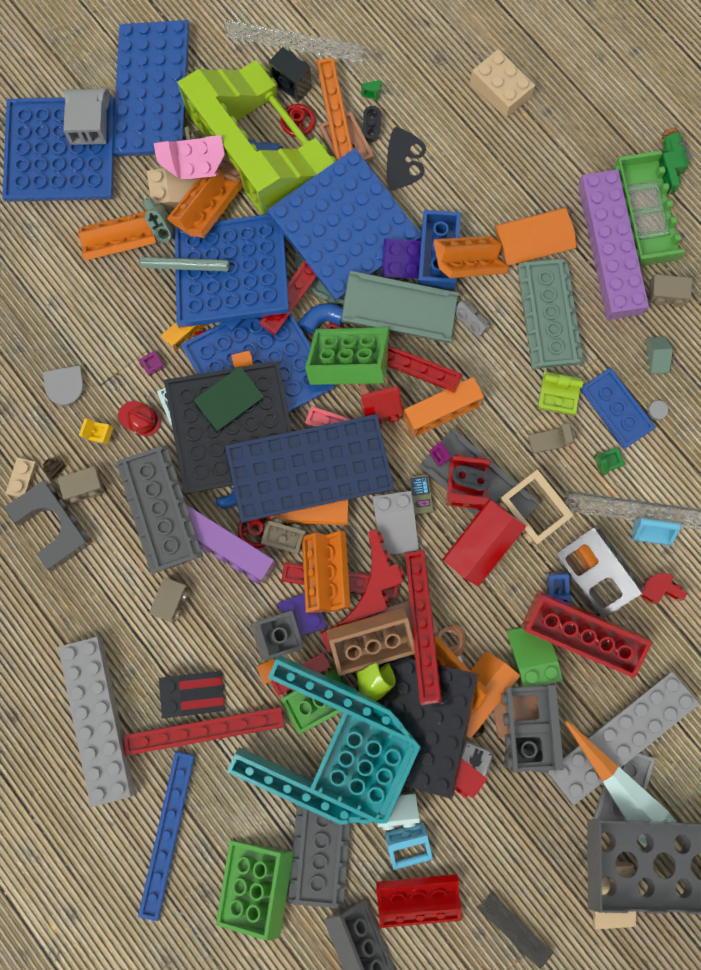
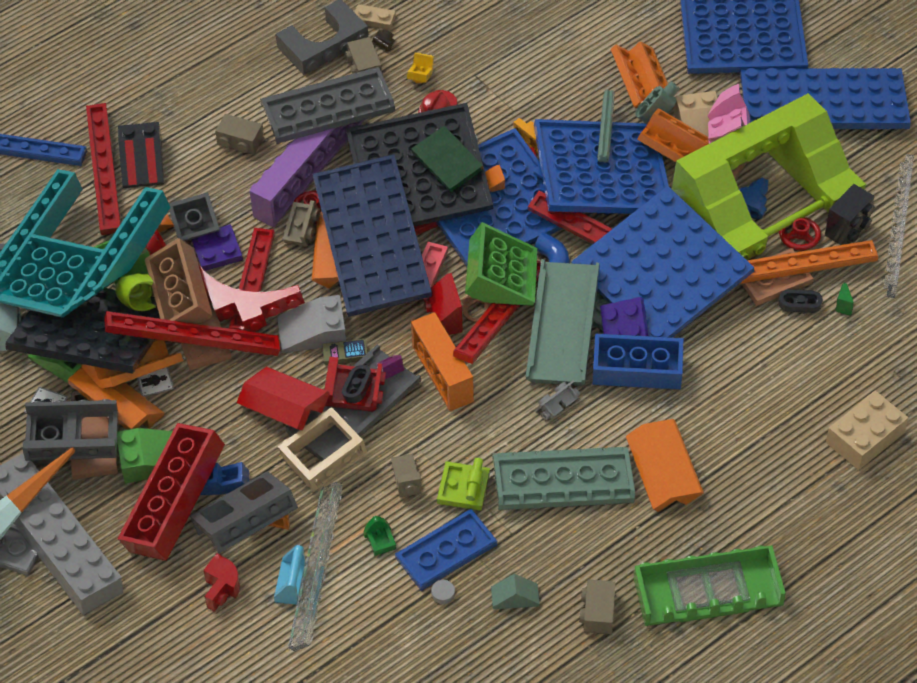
camera: 90 degrees right, 25 degrees down
(64, 385) = (473, 44): light grey tile -> none
(86, 115) = (777, 37): light grey piece -> none
(96, 721) = (123, 81): light grey brick -> none
(152, 363) = (498, 114): magenta tile -> none
(325, 572) = (260, 259): orange slope -> none
(397, 167) = (771, 332): black piece -> none
(457, 631) = (185, 388): nougat piece -> none
(469, 256) = (625, 383): orange slope -> none
(469, 780) = (31, 378): red brick -> none
(612, 245) = (618, 547): medium lavender brick -> none
(674, 159) = (778, 619): green plate -> none

